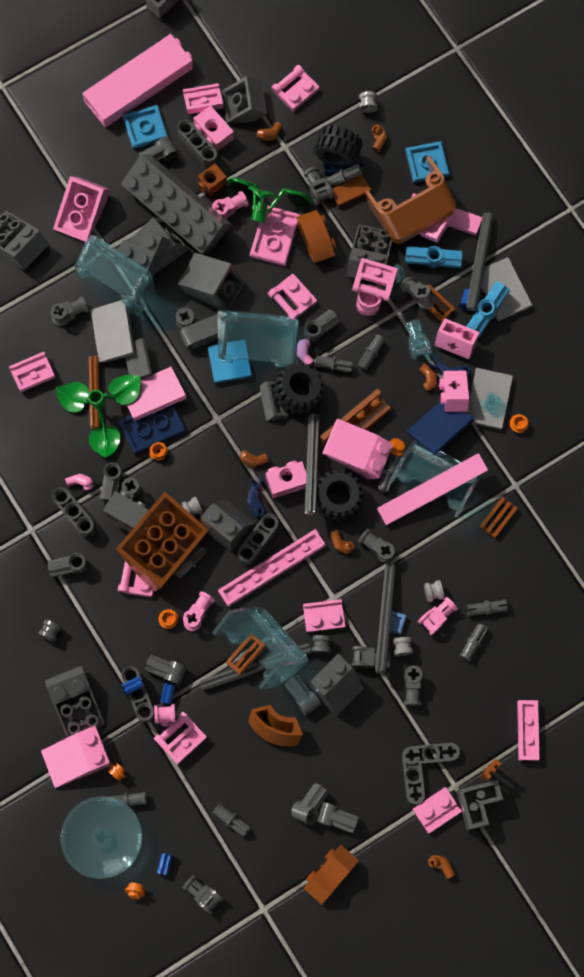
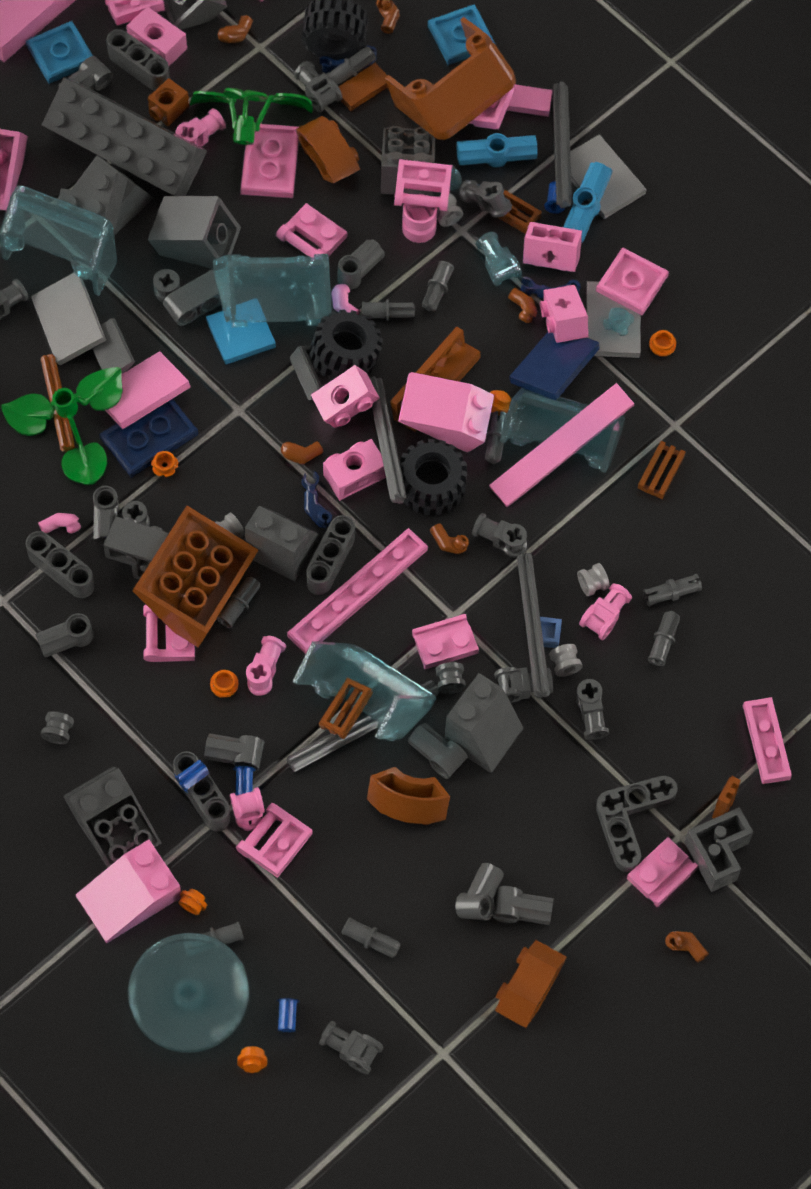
camera: 10 degrees left, 10 degrees down
(280, 426) = (331, 397): none -> bright pink brick
(393, 298) = (452, 215): none -> light grey wheel
(507, 374) = (632, 281): none -> bright pink tile

